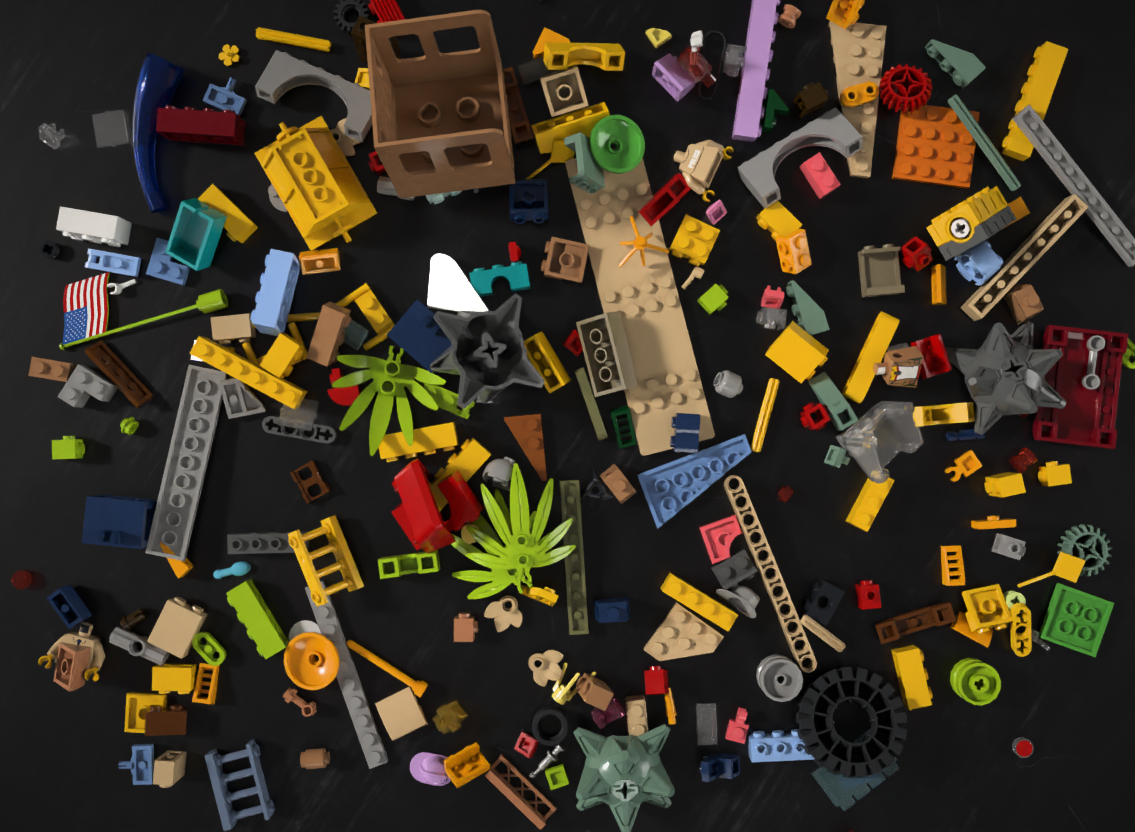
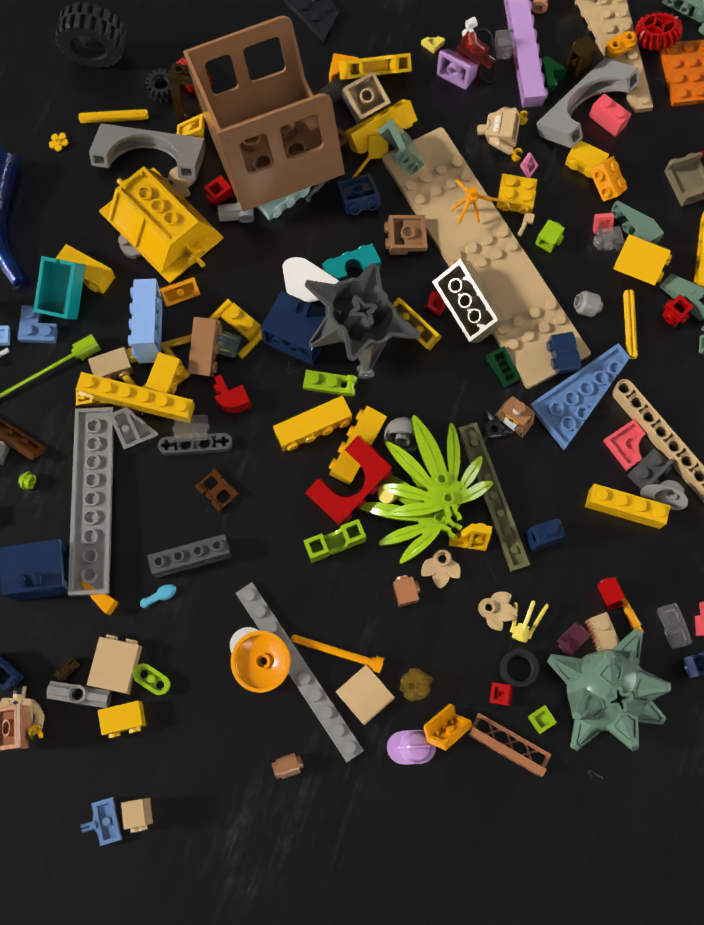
camera: 15 degrees left, 15 degrees down
(135, 709) = (98, 766): yellow tile -> none
(165, 720) = (121, 764): reddish brown brick -> none
(199, 682) = (149, 728): light orange slope -> none
(201, 126) = (45, 199): dark red brick -> none
(220, 779) = (193, 815): sand blue fence -> none
(225, 98) = (62, 175): medium blue plate -> none
(257, 619) = (195, 635): lime brick -> none
(307, 708) = (267, 714): nougat bar -> none
(341, 551) = (263, 547): yellow fence -> none
(389, 382) = (272, 377): lime plant -> none
(421, 507) = (338, 474): red windscreen -> none
(514, 251) = (357, 238): red tile -> none
(529, 434) = (417, 395): dark orange wing -> none
(552, 756) = (527, 705): light grey piece -> none
(591, 403) = (467, 352): olive beam -> none
(594, 691) = (554, 616): medium nougat brick -> none
(626, 139) = (425, 126): bright green dish -> none
(664, 199) = (481, 162): red slope -> none
(682, 636) = (621, 546): tan plate -> none
(785, 493) = (674, 388): clear red plate -> none

